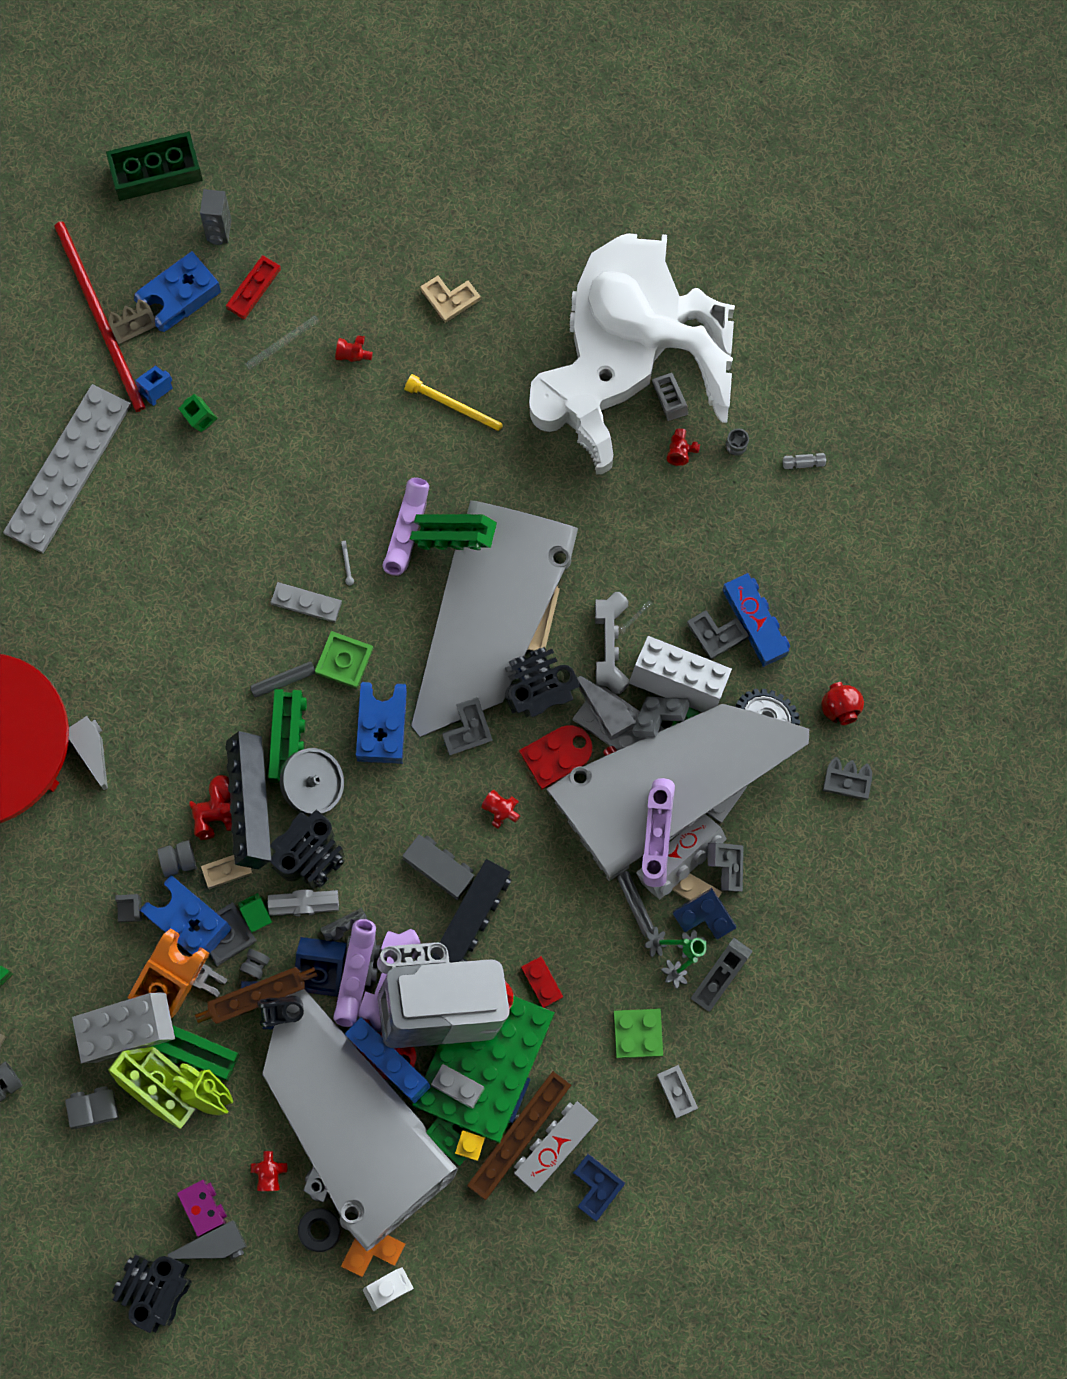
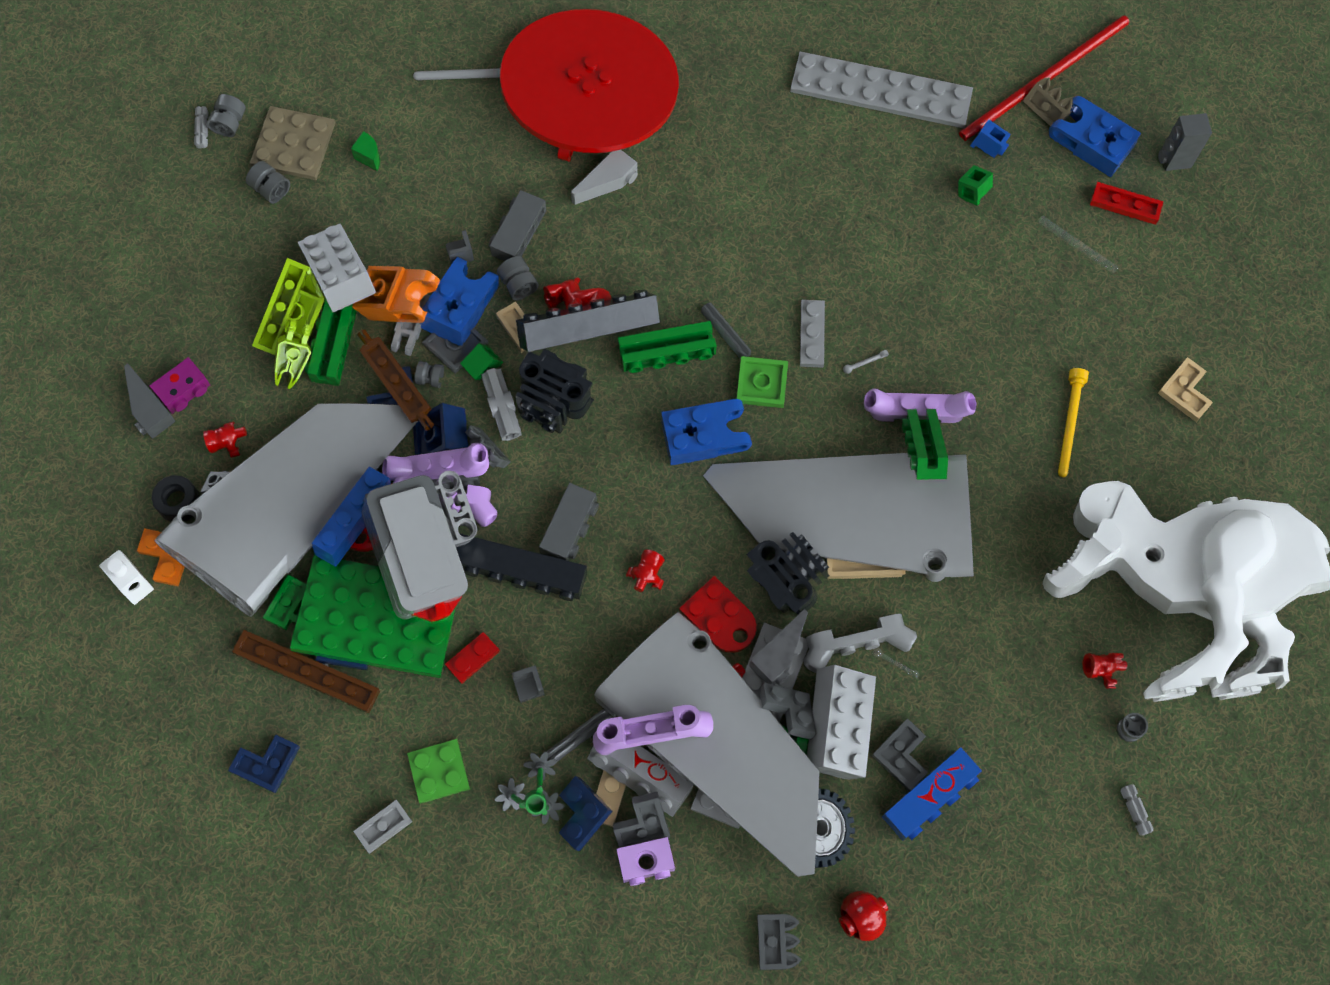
camera: 80 degrees right, 5 degrees down
(92, 1108) = (259, 266): dark grey brick -> none
(121, 847) = (518, 226): none -> dark grey brick
(149, 1288) = (89, 358): black piece -> none
(154, 166) = (1218, 81): dark green brick -> none
(278, 1010) = (382, 398): black piece -> none
(311, 781) = (625, 379): piece -> none
(352, 352) = (1091, 309): red piece -> none
(457, 1086) = (339, 592): light grey plate -> none
(470, 1145) = (283, 621): yellow plate -> none
(474, 728) = (723, 524): dark grey plate -> none
(556, 1146) = (299, 710): light grey brick -> none
(580, 936) = (528, 684): none -> dark grey panel
(674, 409) = (1147, 652): light grey slope -> none
(721, 974) = (522, 846): dark grey slope -> none
(758, 856) = (657, 849): none -> lavender brick

